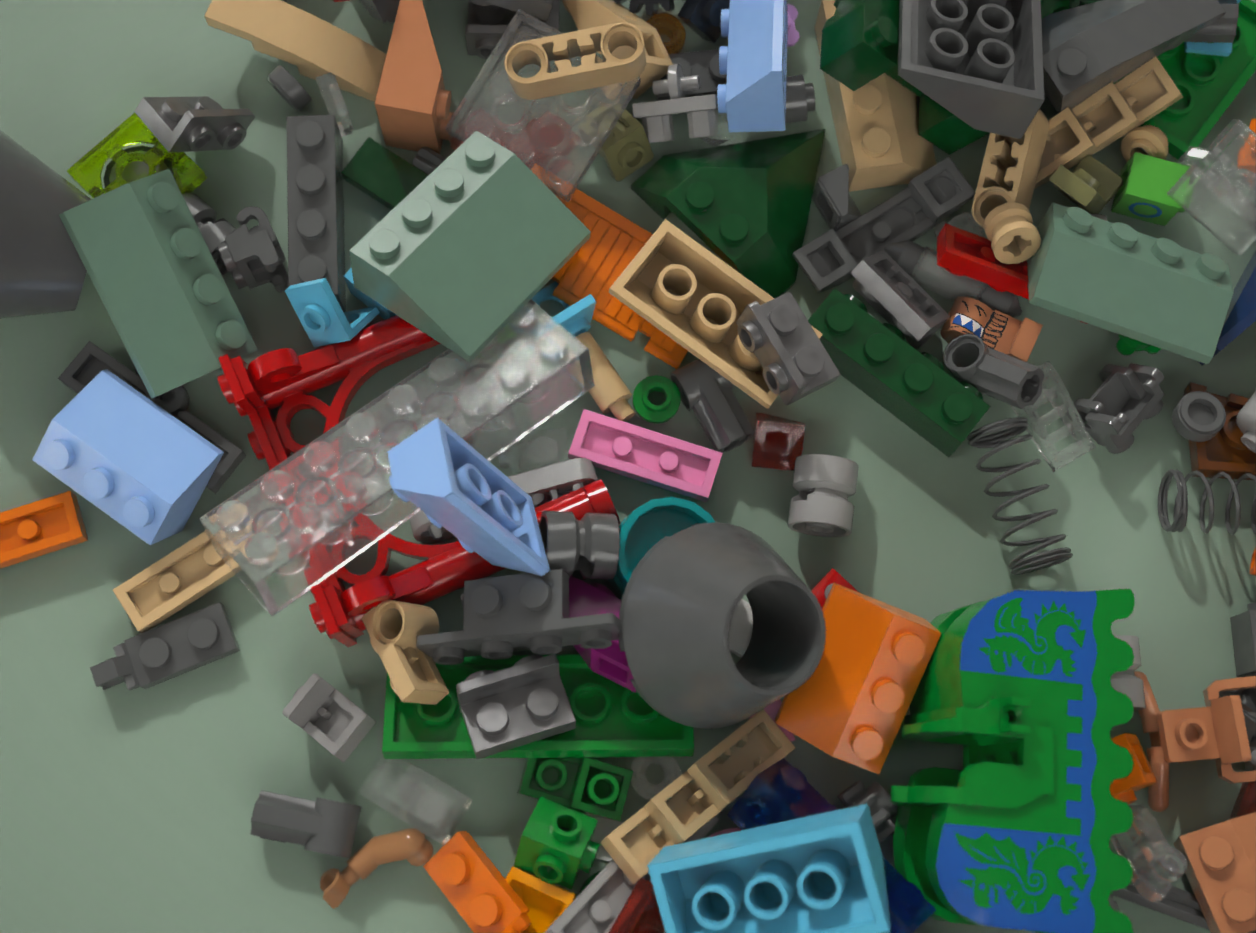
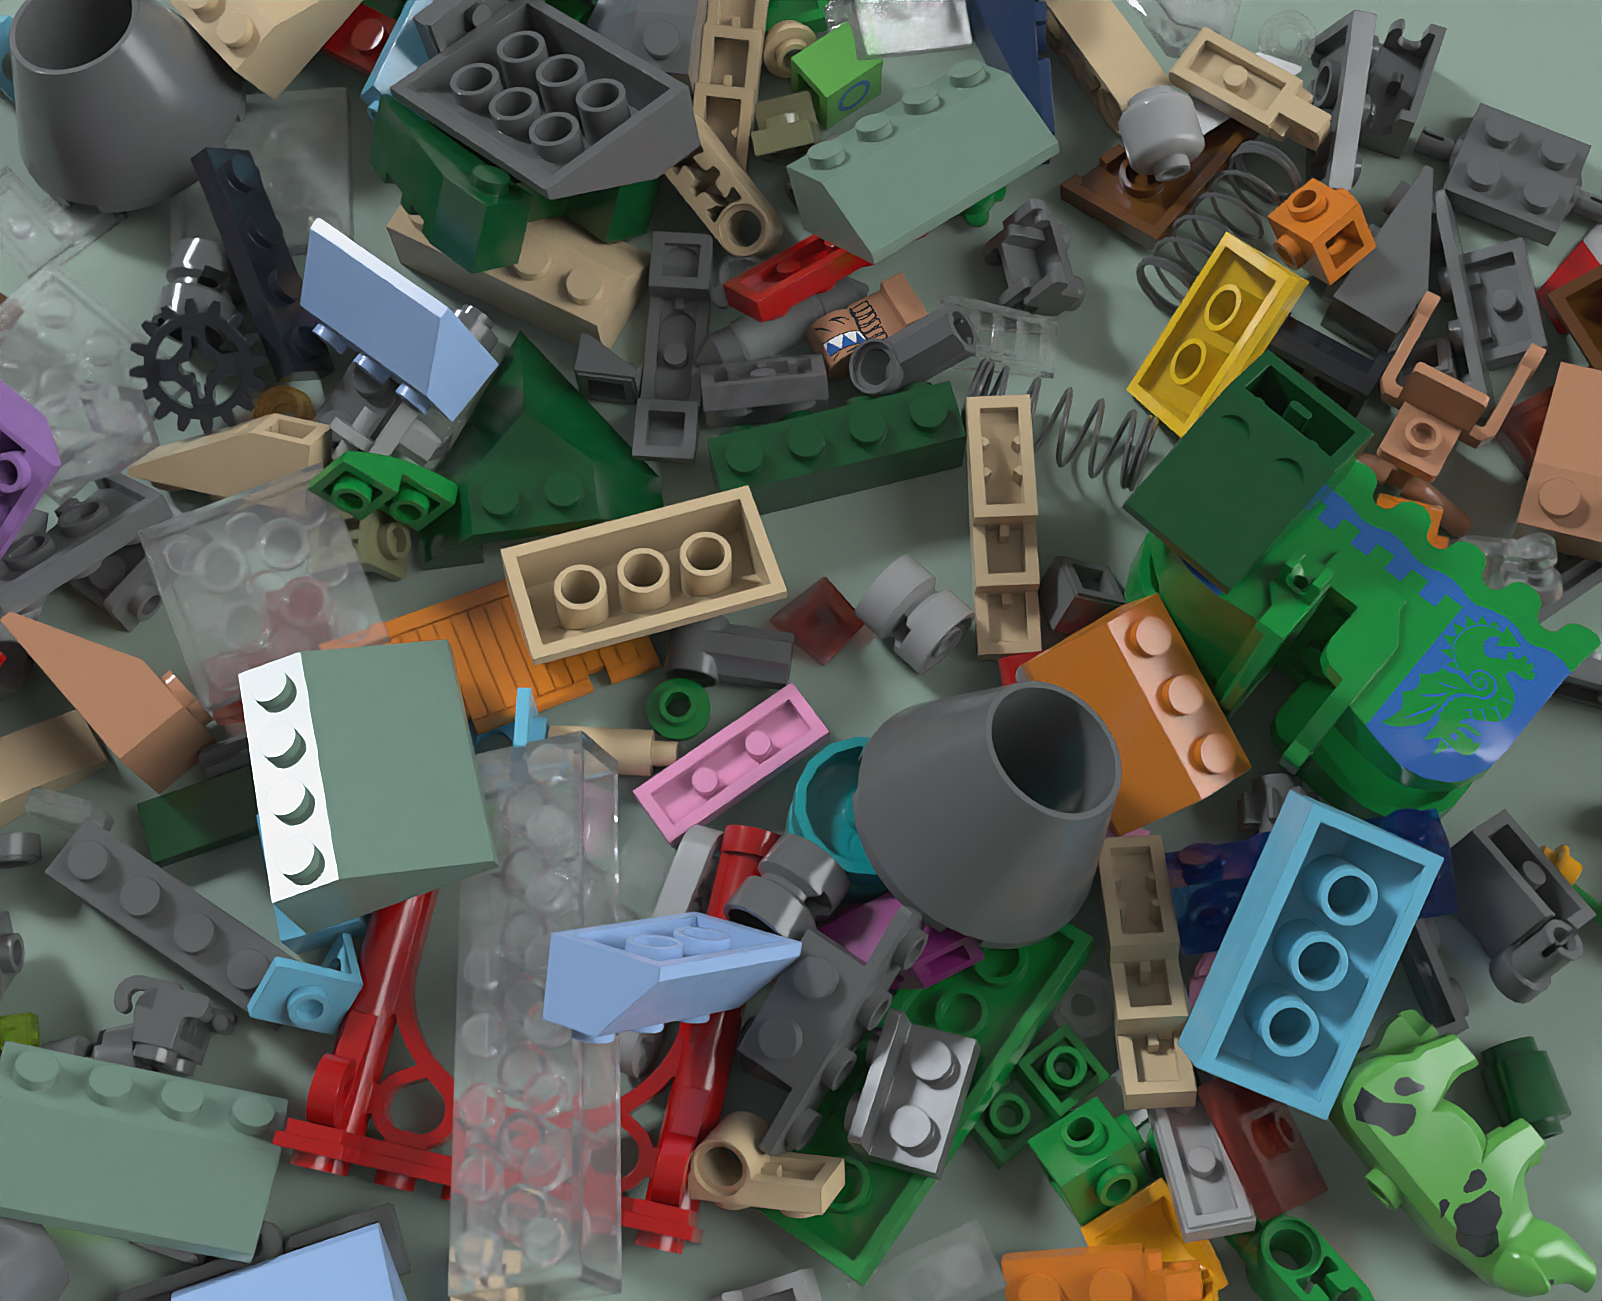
camera: 45 degrees left, 5 degrees down
(576, 44) = (243, 491): tan beam -> none
(648, 112) = (373, 481): none -> green slope
(786, 348) = (738, 529): flat silver bracket -> none
(917, 588) = (1077, 593): none -> dark grey slope
(922, 508) = (1003, 525): none -> tan slope
(1012, 233) = (786, 228): tan wheel -> none
(1057, 631) = (1248, 471): none -> dark green slope
(1158, 553) = (1215, 332): none -> yellow slope
(1198, 416) = (1103, 200): dark grey tile -> none
(1198, 631) = (1329, 365): none -> black hinge

